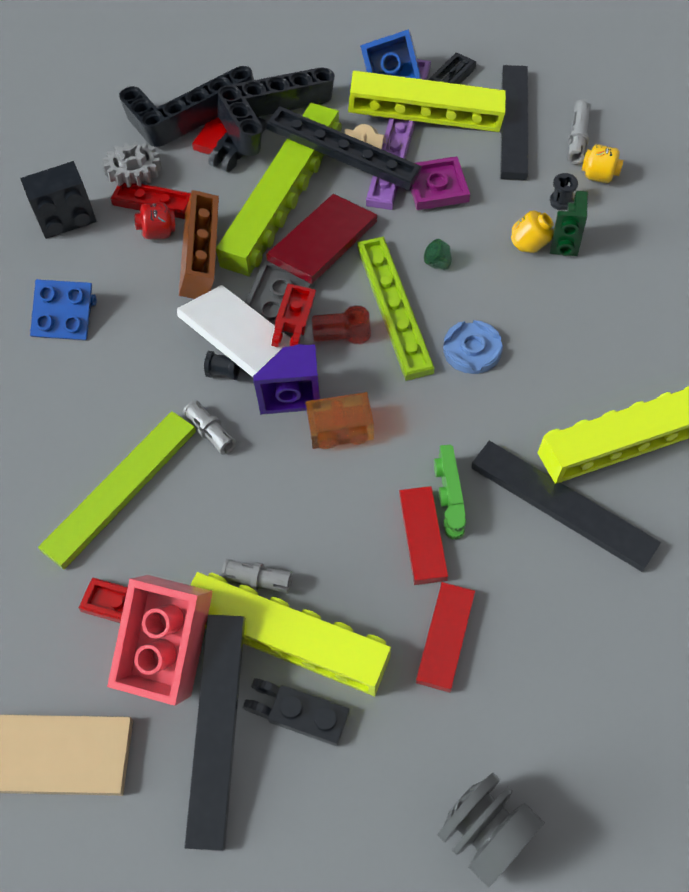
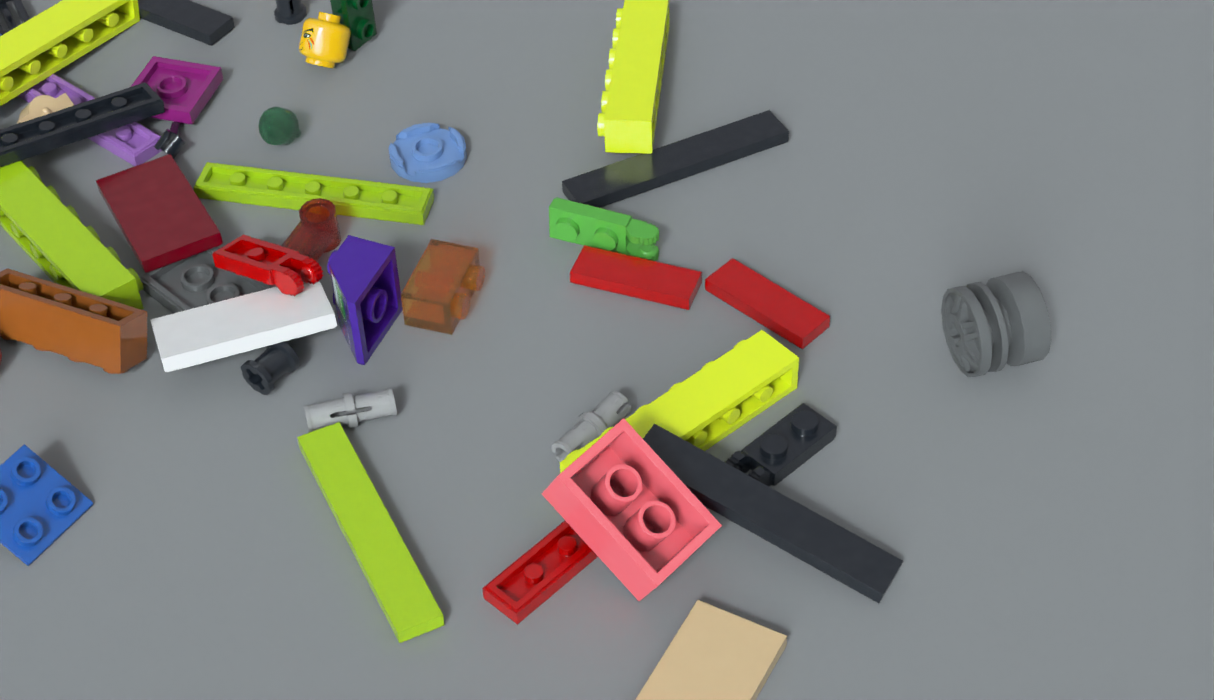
camera: 65 degrees left, 15 degrees down
(392, 208) = (170, 141): none -> black hand

